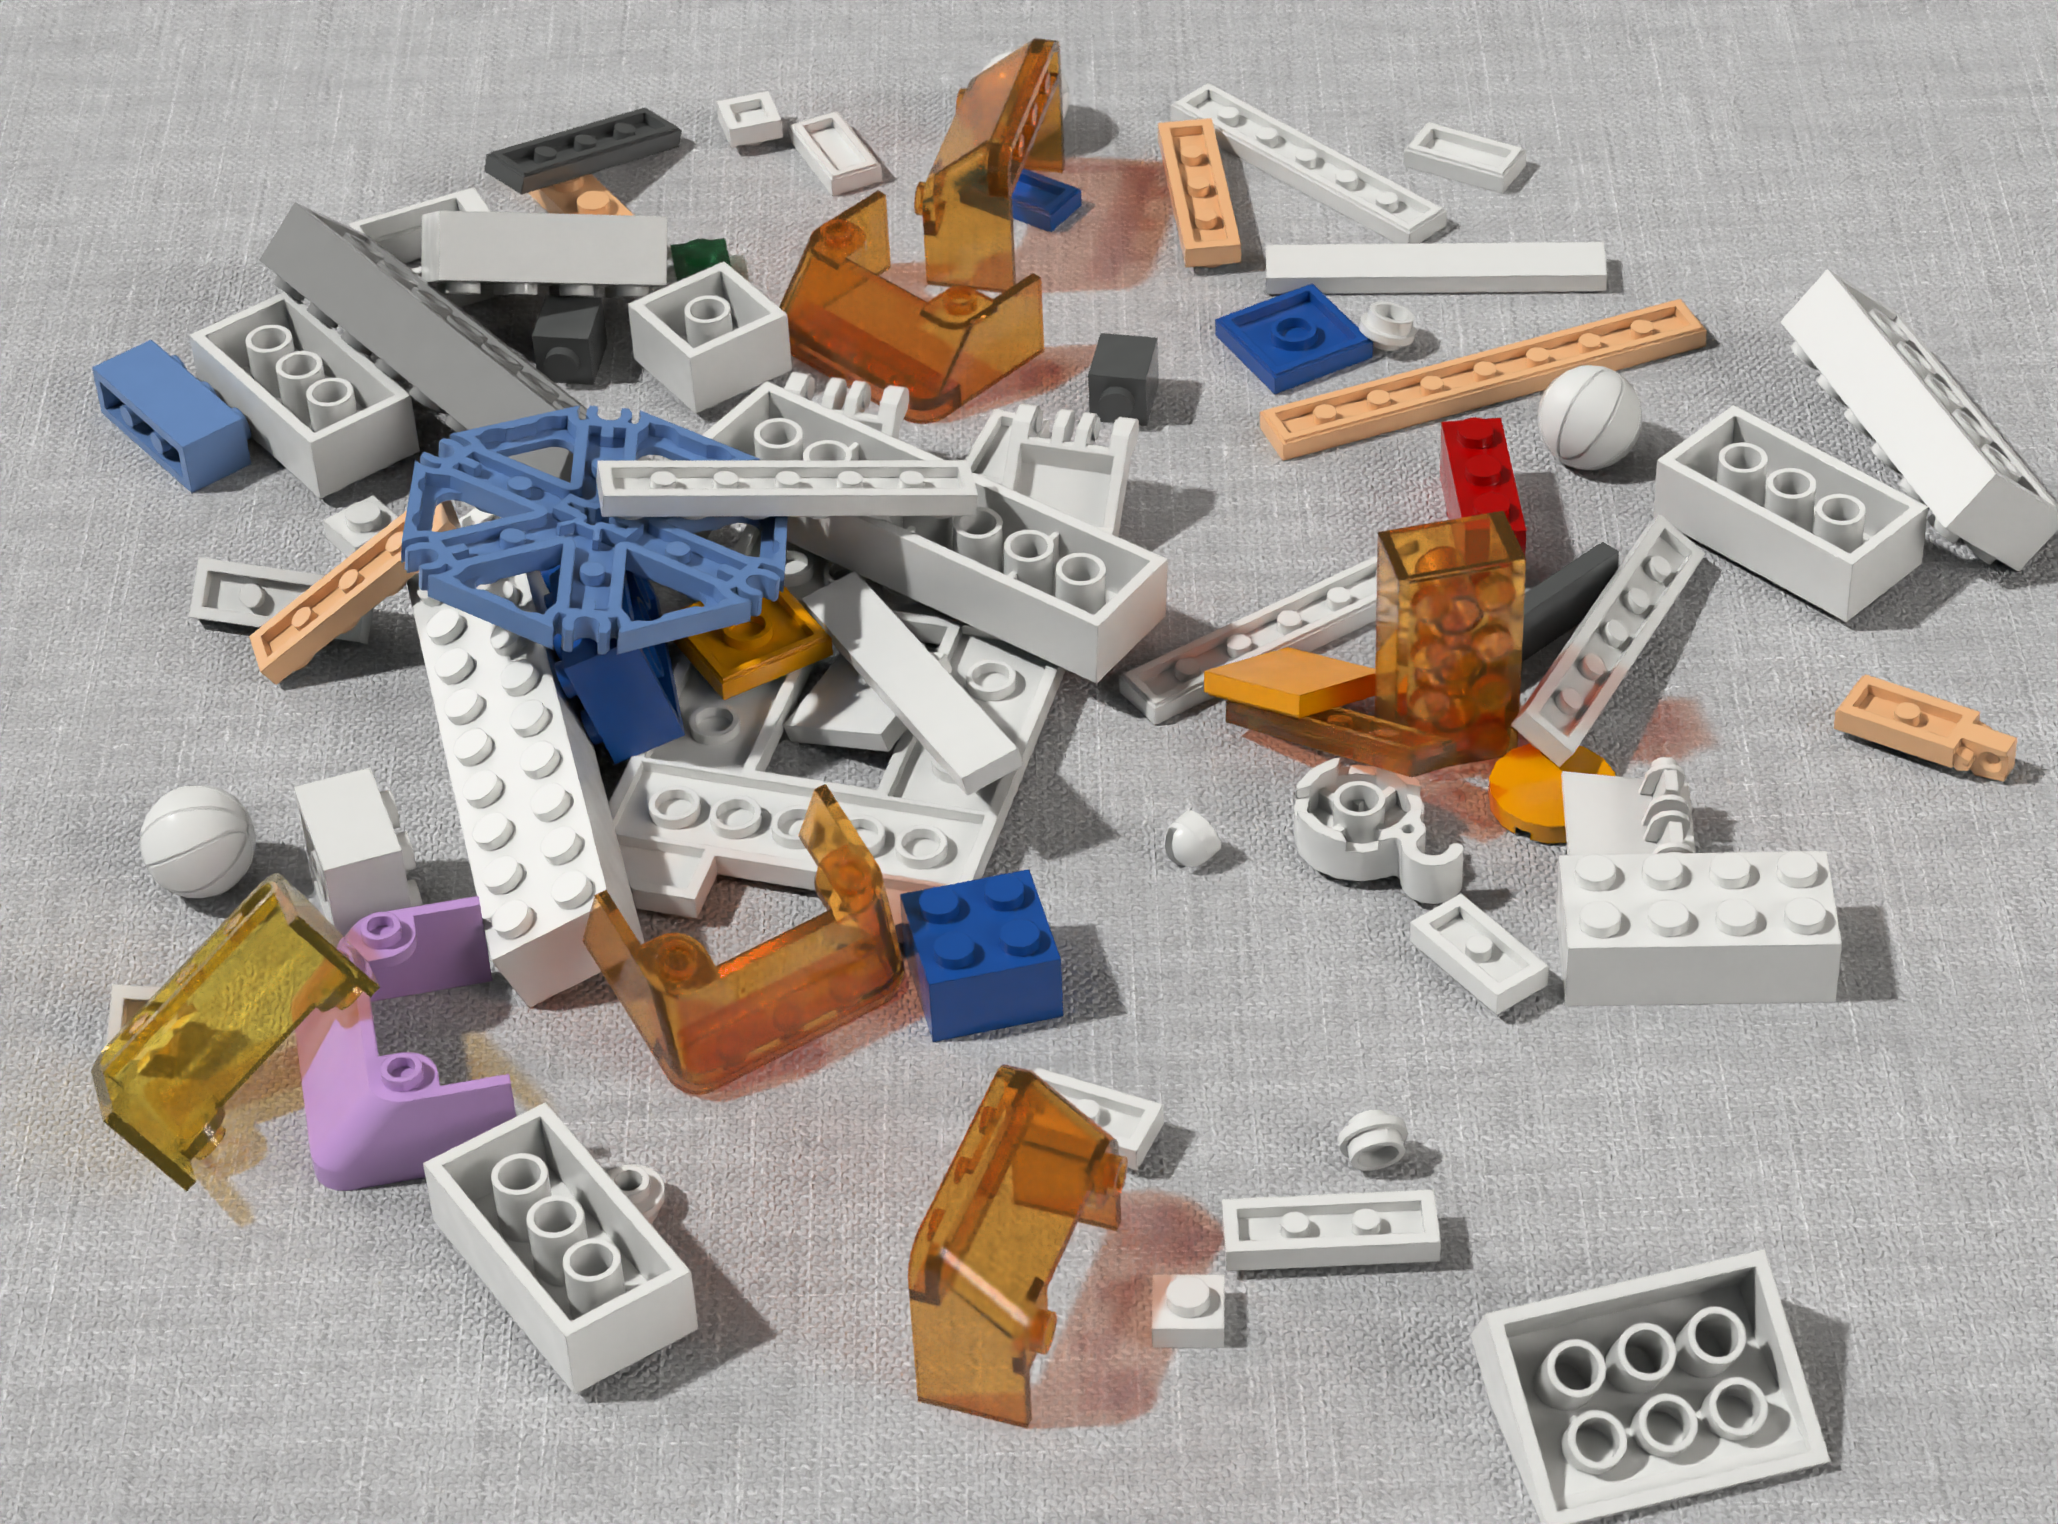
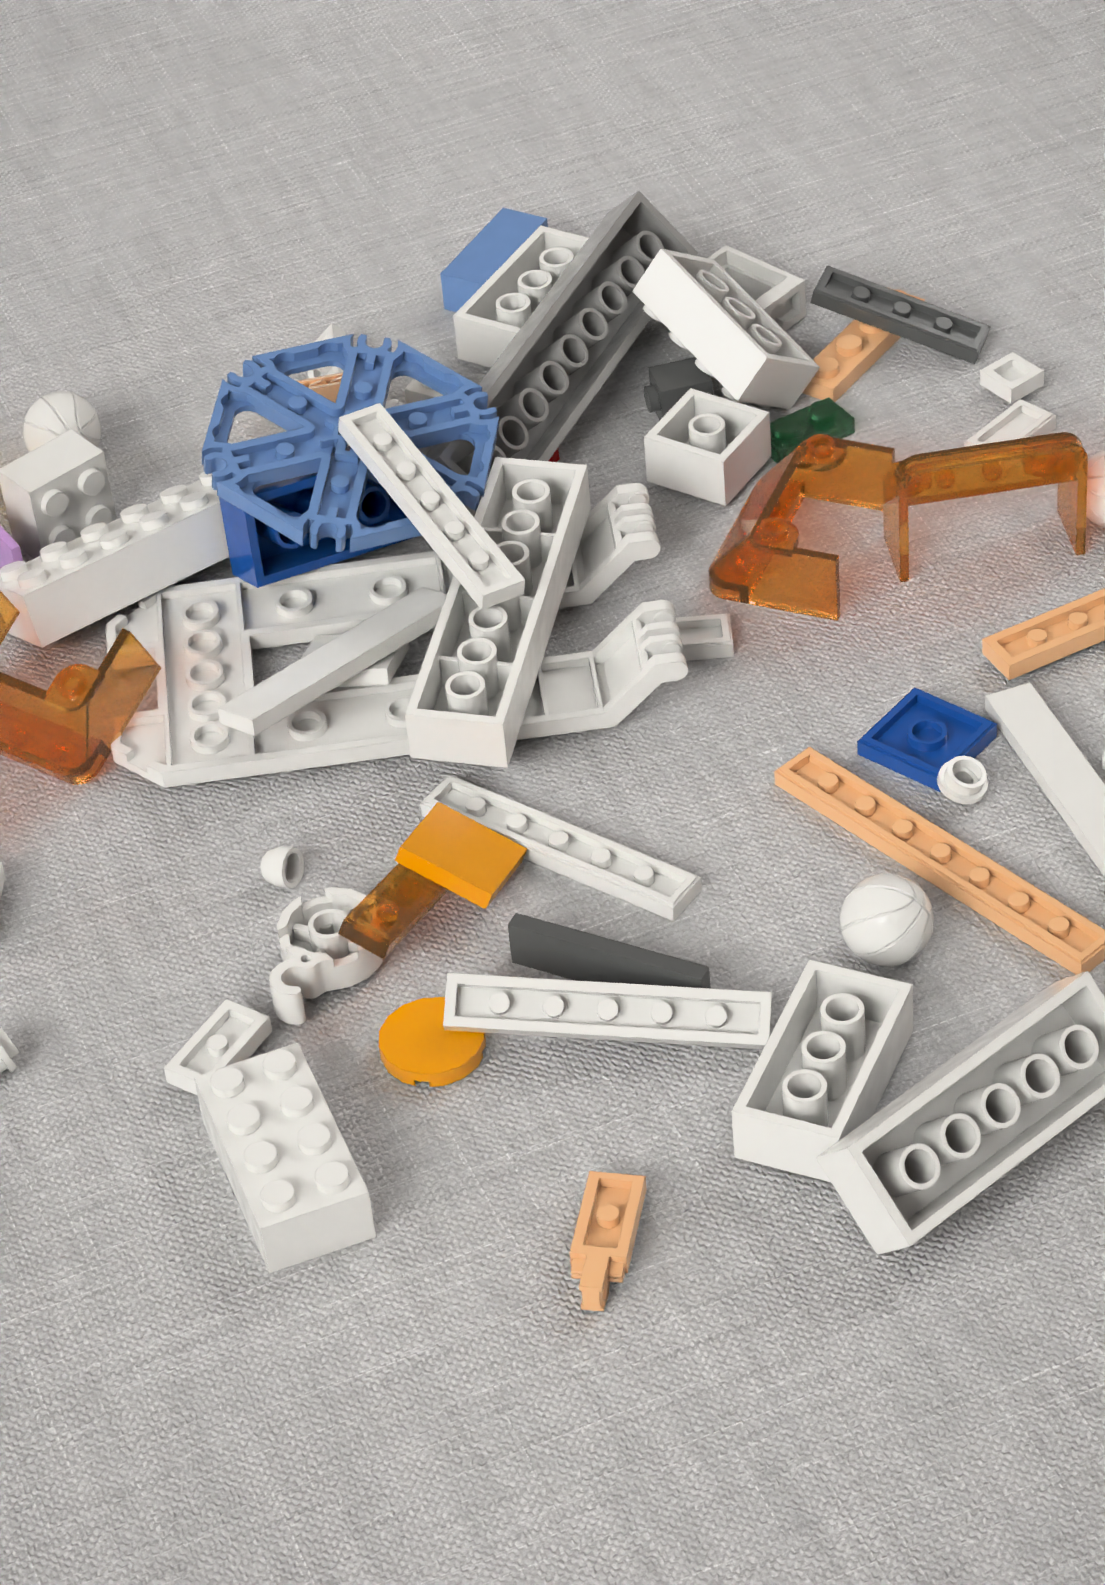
camera: 70 degrees right, 0 degrees up
(758, 650) = (378, 577): light orange tile -> none
(981, 955) = (104, 799): blue brick -> none
(1043, 200) = (1022, 541): blue tile -> none
(1123, 377) = (796, 662): dark grey brick -> none
(1451, 632) = (466, 883): clear orange brick -> none
(1479, 472) = (746, 894): red brick -> none
(1629, 813) = (388, 1091): white hinge -> none

